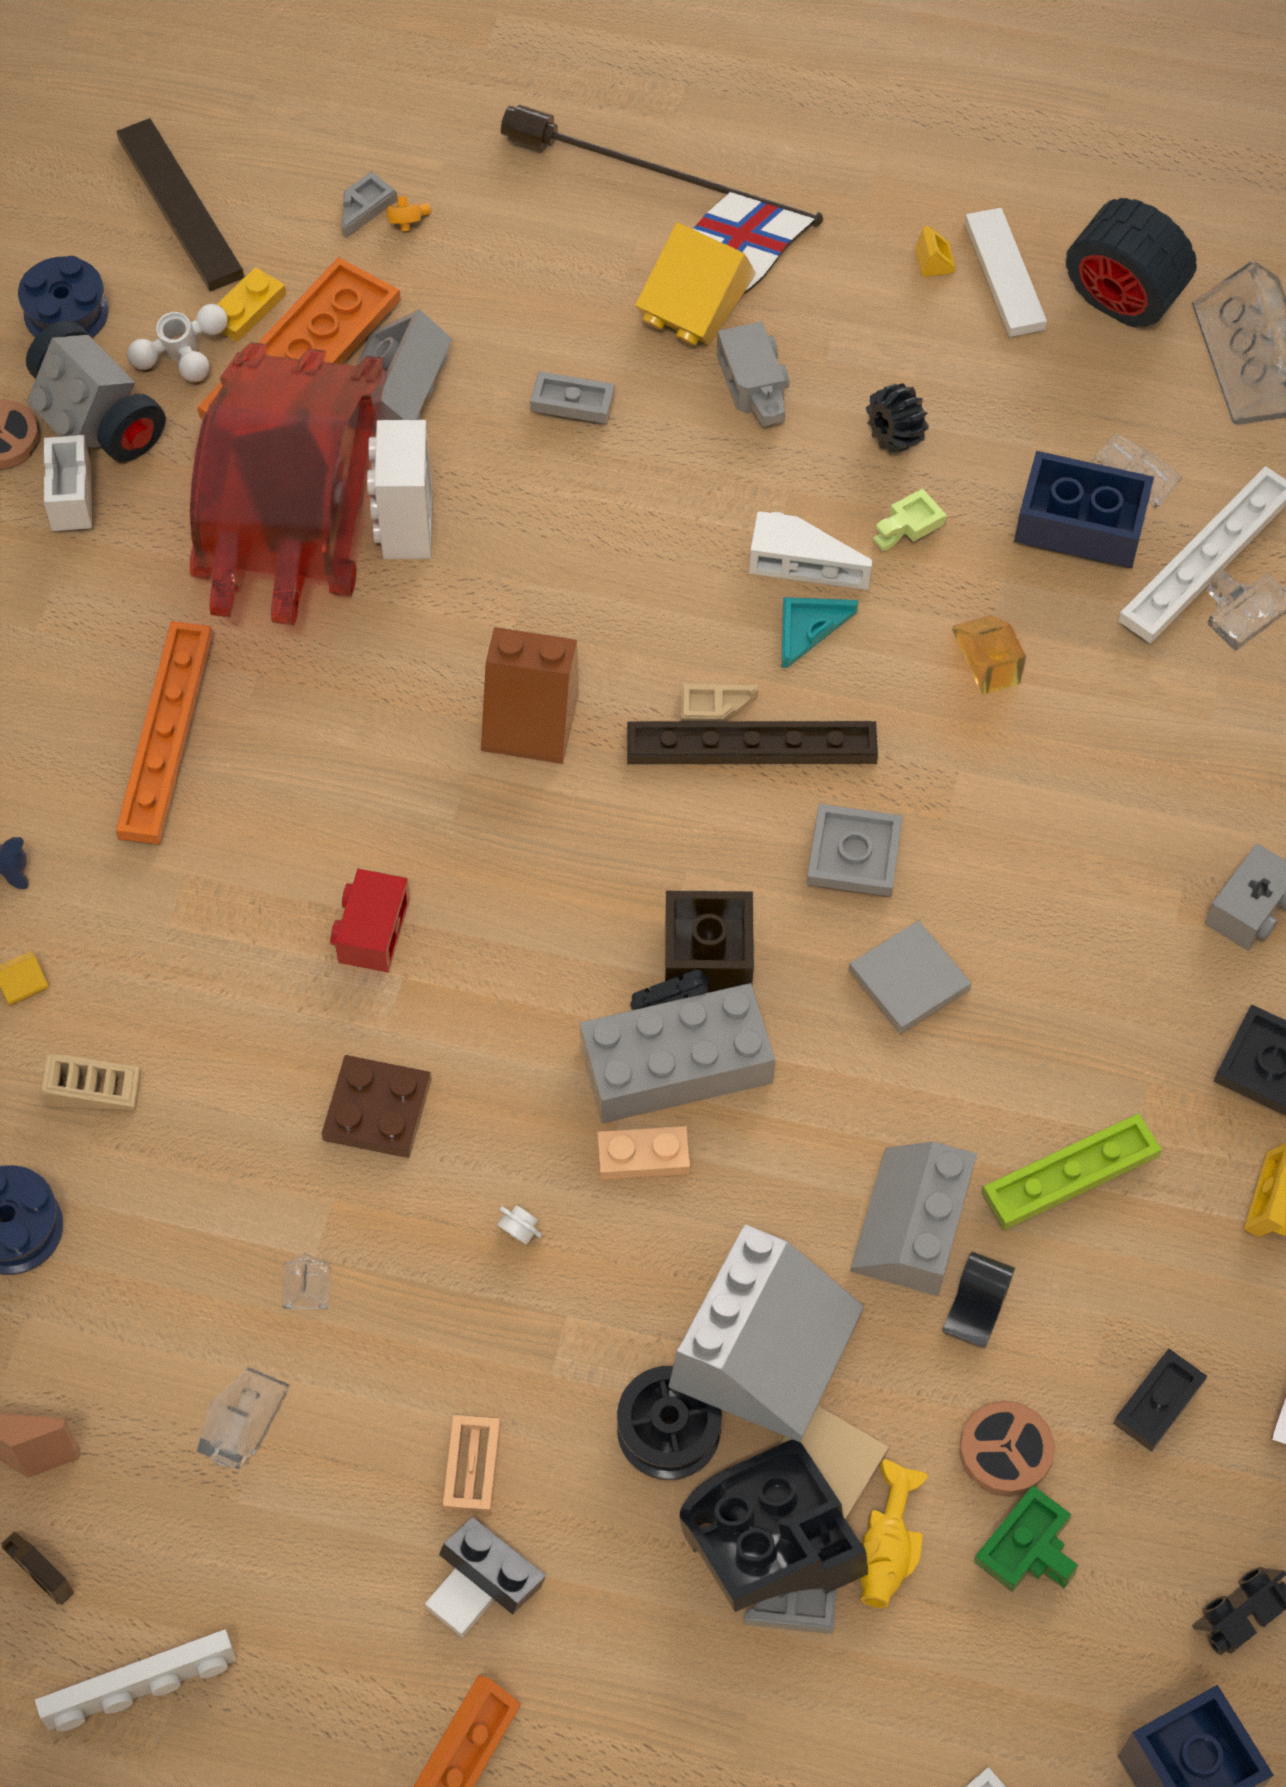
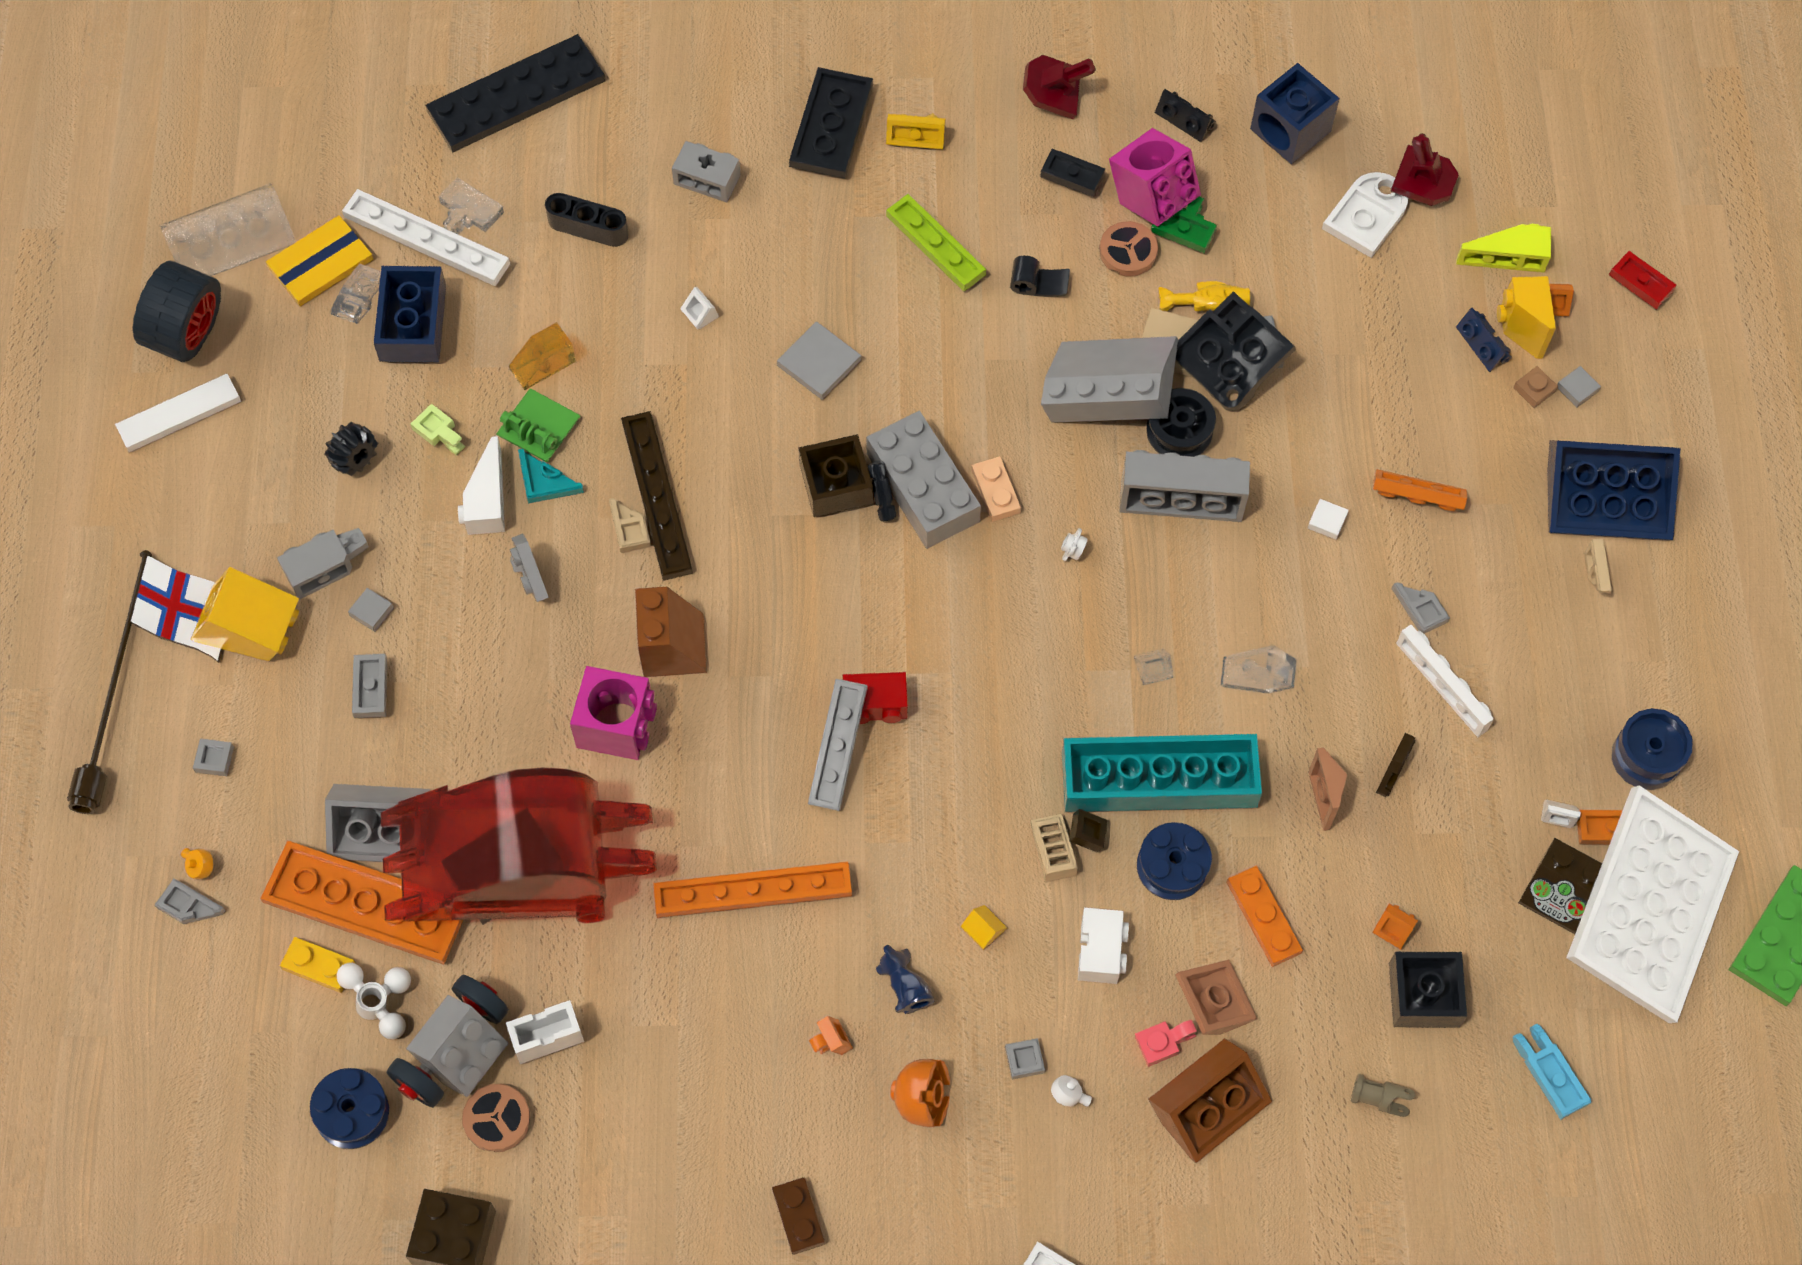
camera: 105 degrees left, 5 degrees up
(93, 1126) = (1088, 830): none -> dark brown plate
(131, 1234) = (1161, 772): none -> teal brick
(180, 204) = (214, 1055): dark brown tile -> none
(272, 1696) = (1421, 607): none -> light grey tile
(315, 855) = (837, 744): none -> light grey tile
(376, 1106) = (1012, 659): reddish brown plate -> none
(401, 489) = (505, 749): white brick -> none
(433, 590) = (608, 687): none -> dark pink brick
(468, 1503) = (1240, 546): light nougat tile -> none
(492, 1565) = (1300, 504): plate -> none
(534, 246) = (213, 757): none -> light grey tile
(556, 1389) = (1184, 486): none -> light grey brick
(676, 563) = (523, 561): none -> light grey hinge
(677, 418) = (370, 609): none -> light grey tile
(854, 850) = (731, 409): light grey plate -> none
(891, 629) = (537, 425): none -> bright green hinge
(914, 1215) = (994, 320): light grey slope -> none
(934, 253) = (170, 465): yellow slope -> none
(1028, 849) = (699, 309): none -> white slope
(1107, 1497) = (1155, 176): none -> dark pink brick
(1193, 752) = (595, 229): none -> black beam
(1199, 440) = (319, 260): none -> yellow tile

